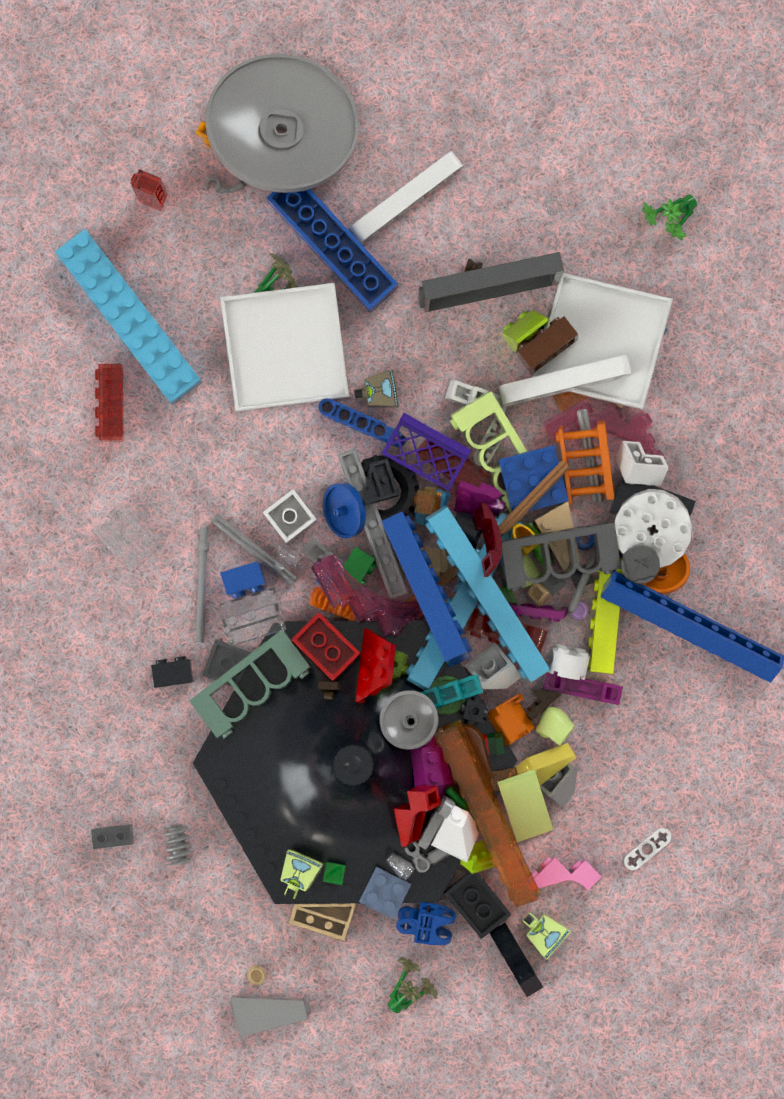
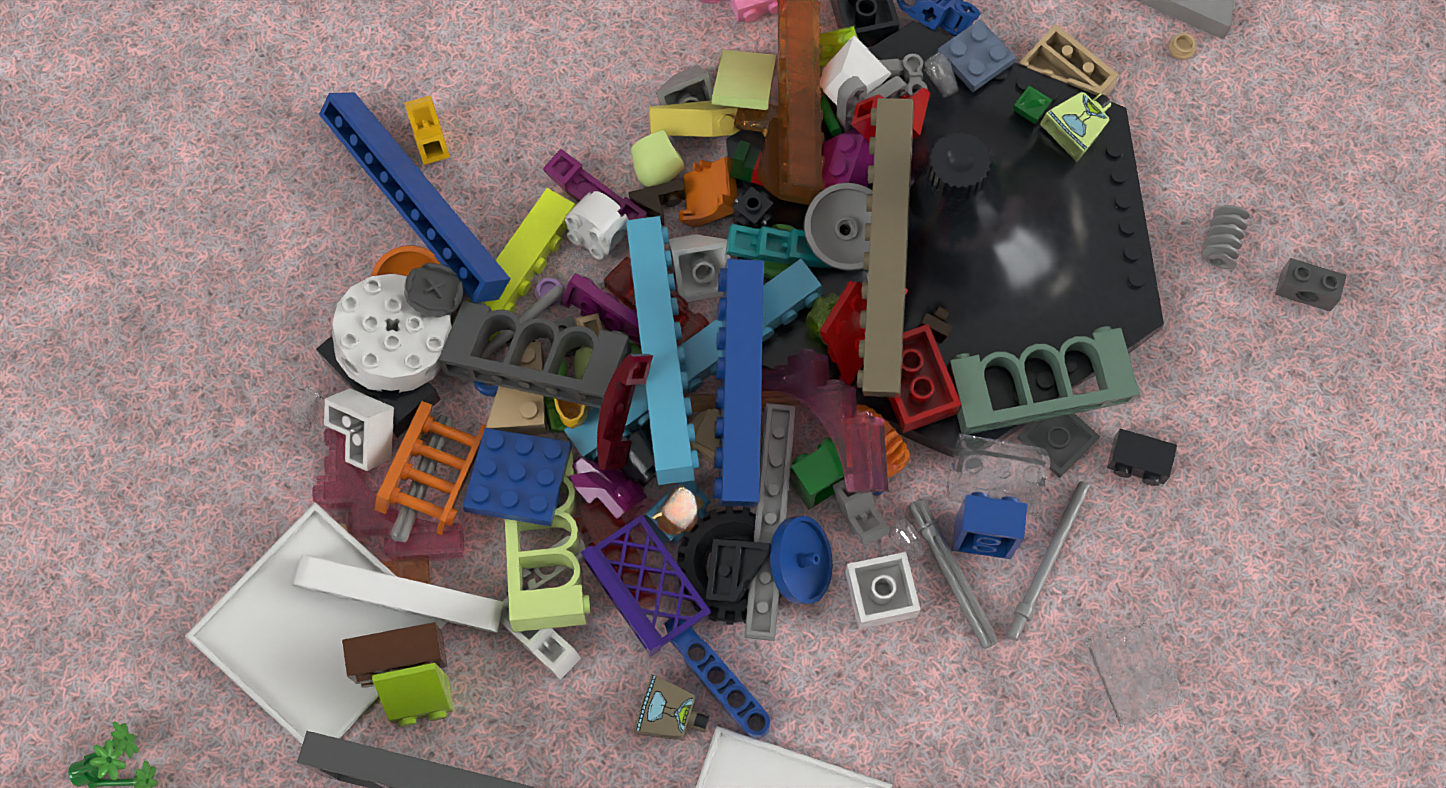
camera: 155 degrees left, 15 degrees down
(376, 711) = (888, 248): none -> dark tan brick
(533, 497) = (528, 448): medium nougat axle -> none
(709, 677) = (427, 130): none -> yellow brick

